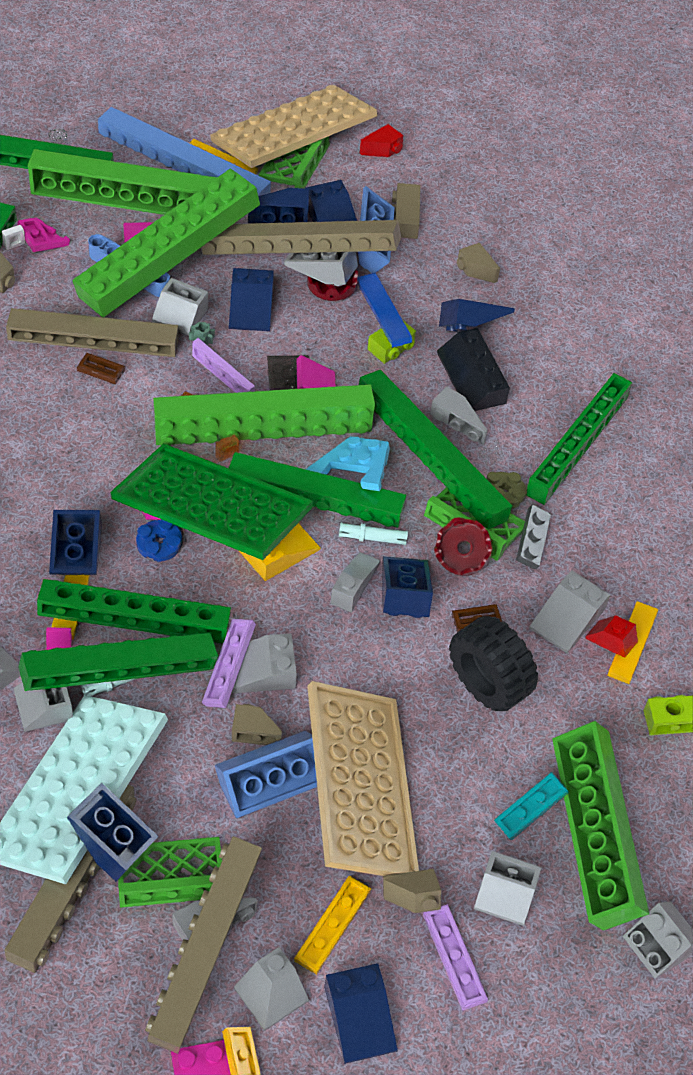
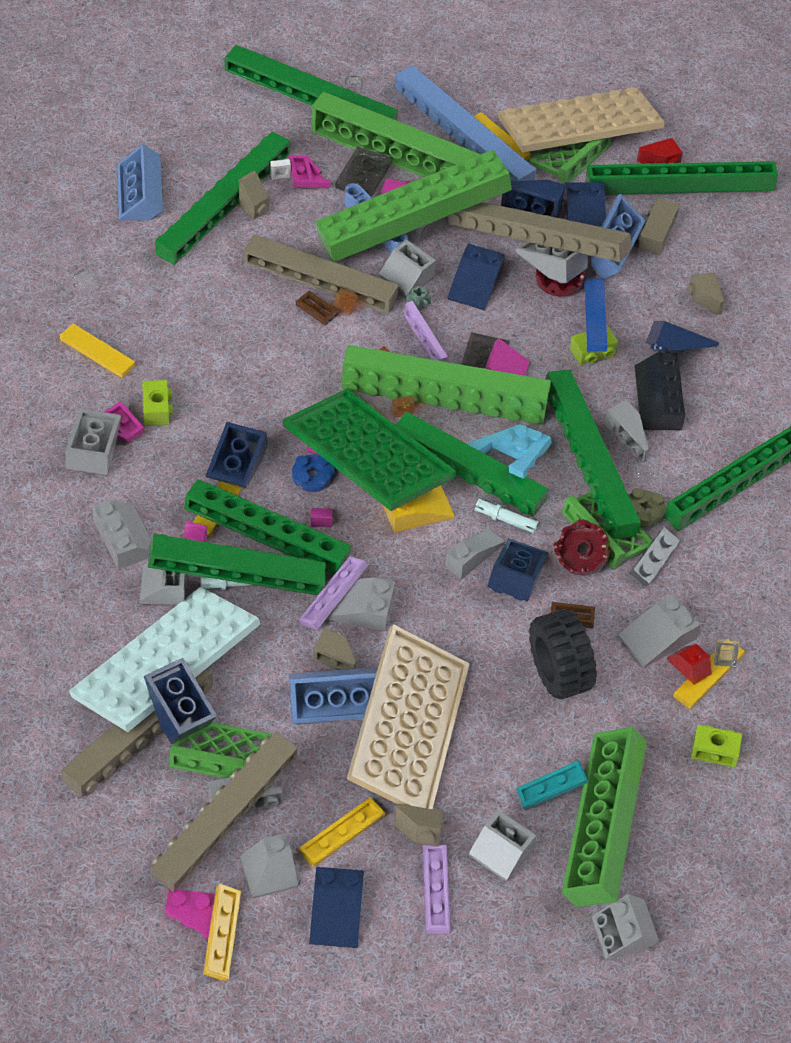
camera: 20 degrees right, 0 degrees up
(99, 217) = (365, 169): none -> clear smoke plate
(128, 354) = (345, 301): none -> clear orange plate
(185, 585) = (321, 517): none -> dark pink slope
(413, 158) = (684, 177): none -> green brick
(644, 616) = (726, 653): none -> clear slope

